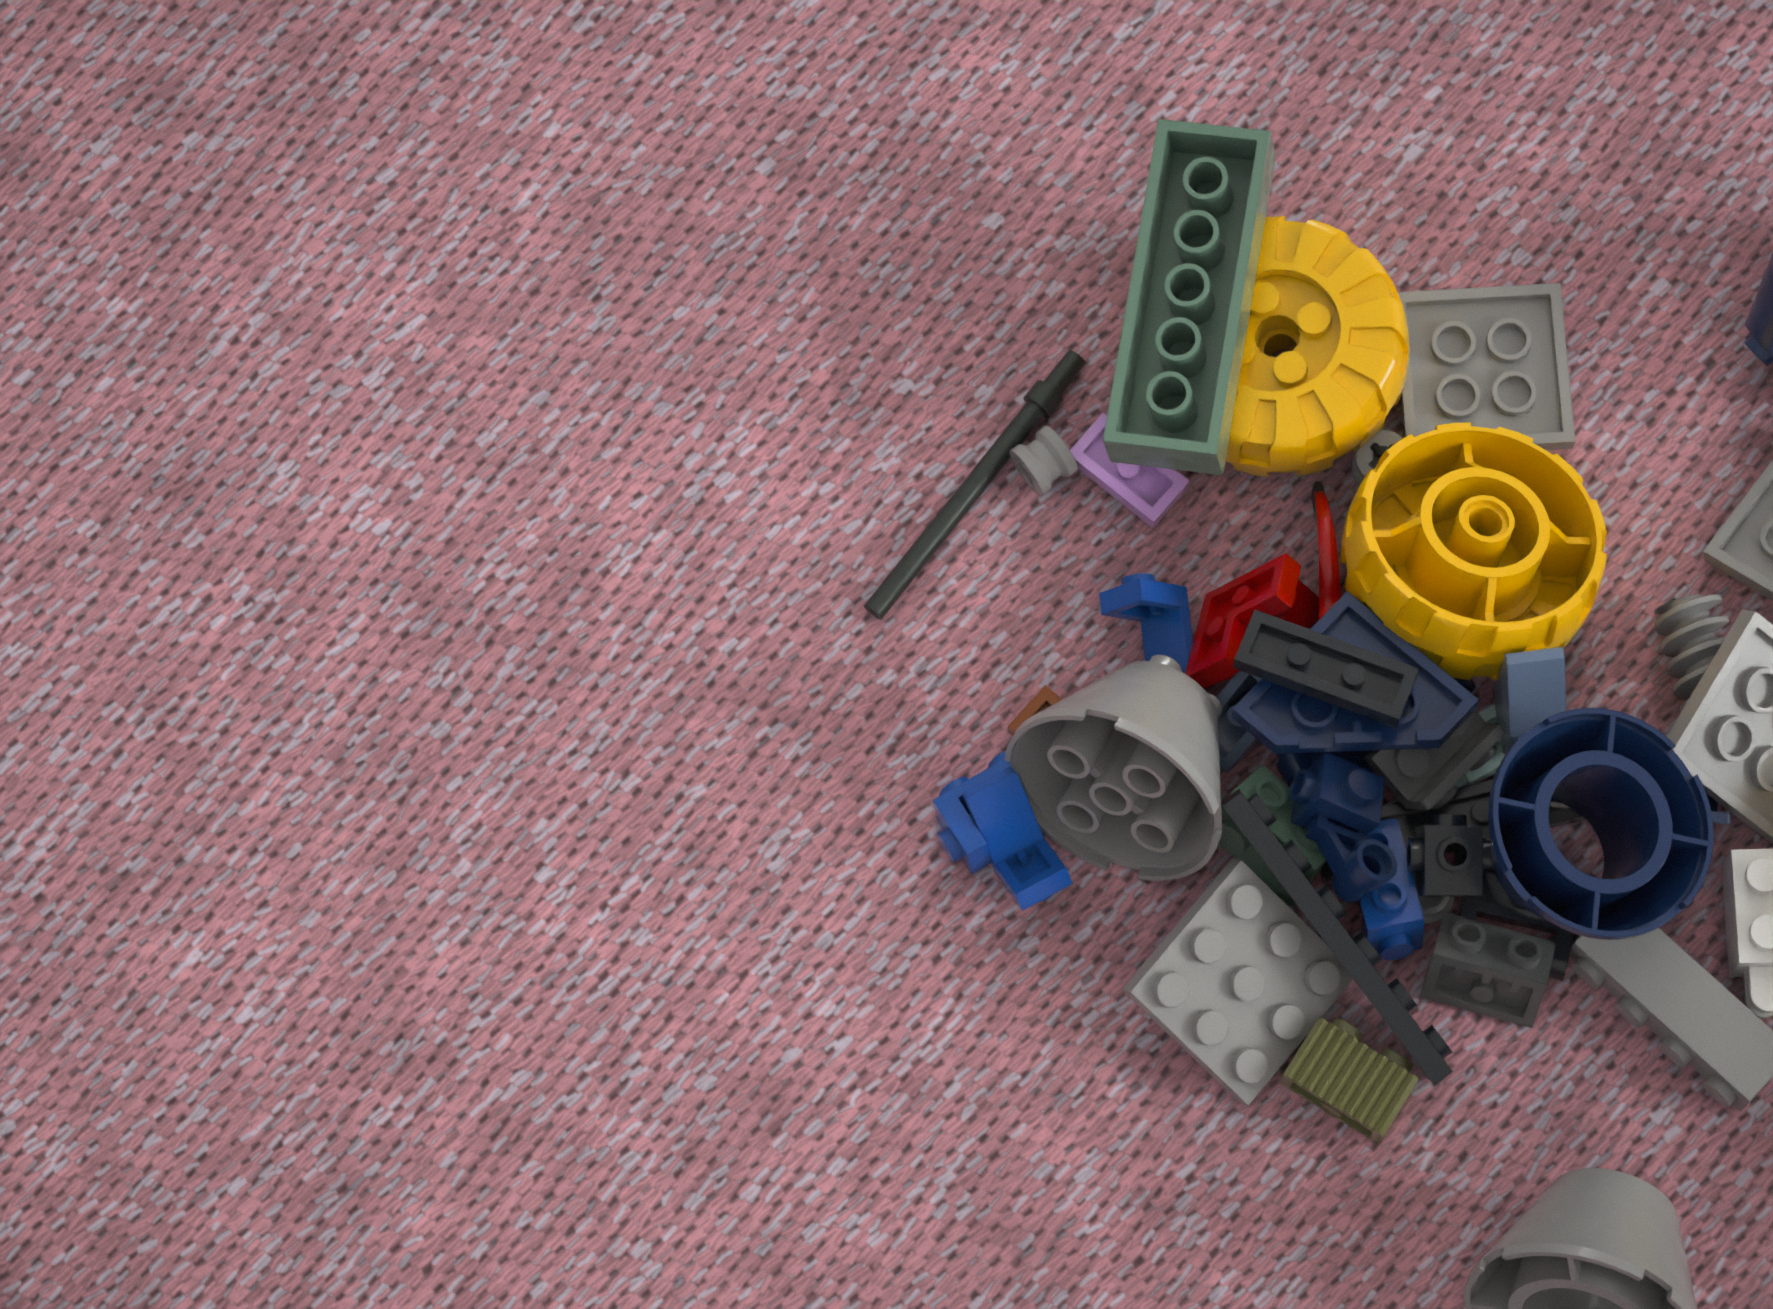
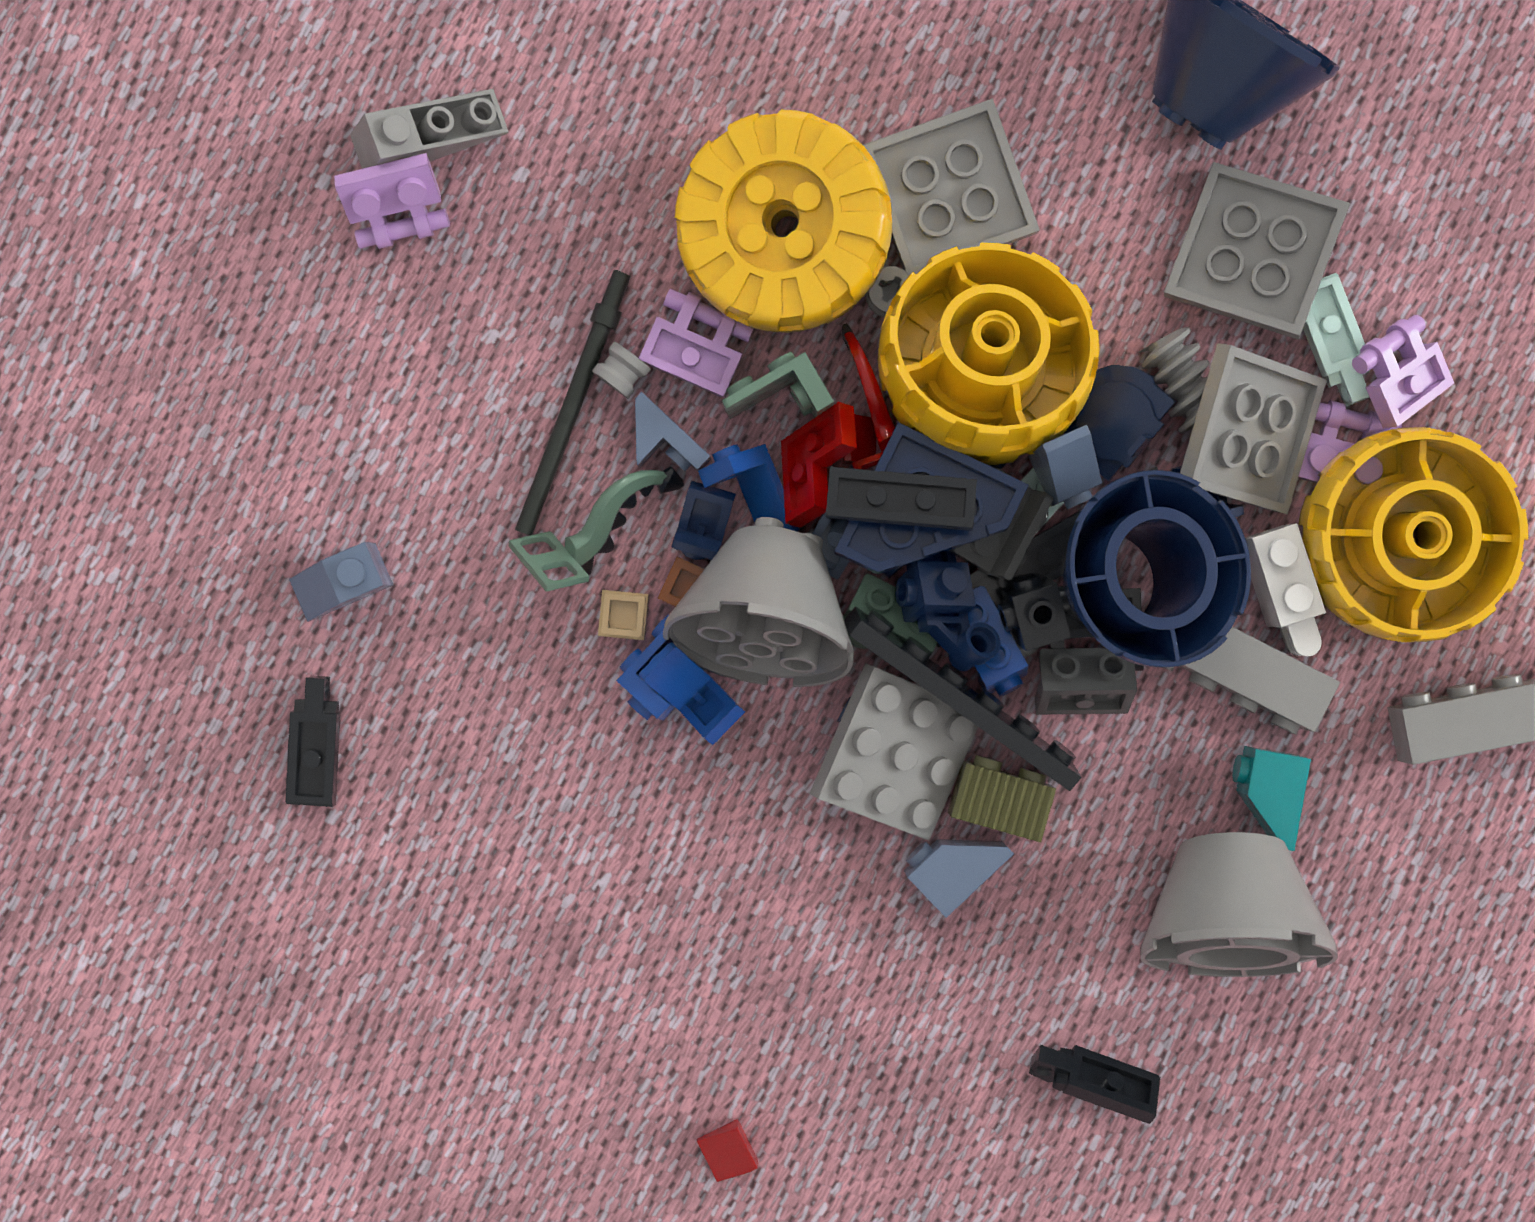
camera: 20 degrees left, 15 degrees up
(551, 782) = (313, 746): none -> black hinge
(644, 602) = (341, 580): none -> sand blue slope
(841, 190) = (390, 190): none -> lavender plate
(900, 142) = (428, 127): none -> light grey slope
(960, 739) = (623, 615): none -> tan tile
(972, 618) = (595, 534): none -> sand green piece
(1065, 538) = (655, 428): none -> sand blue slope
(1088, 651) = (703, 521): none -> dark blue bracket
(1190, 297) = (700, 208): sand green brick -> none
(1228, 514) = (807, 390): none -> sand green bracket
(1268, 1144) = (954, 869): none -> sand blue slope
(1616, 664) = (1122, 415): none -> dark blue piece
(1684, 1158) = (1273, 789): none -> teal slope

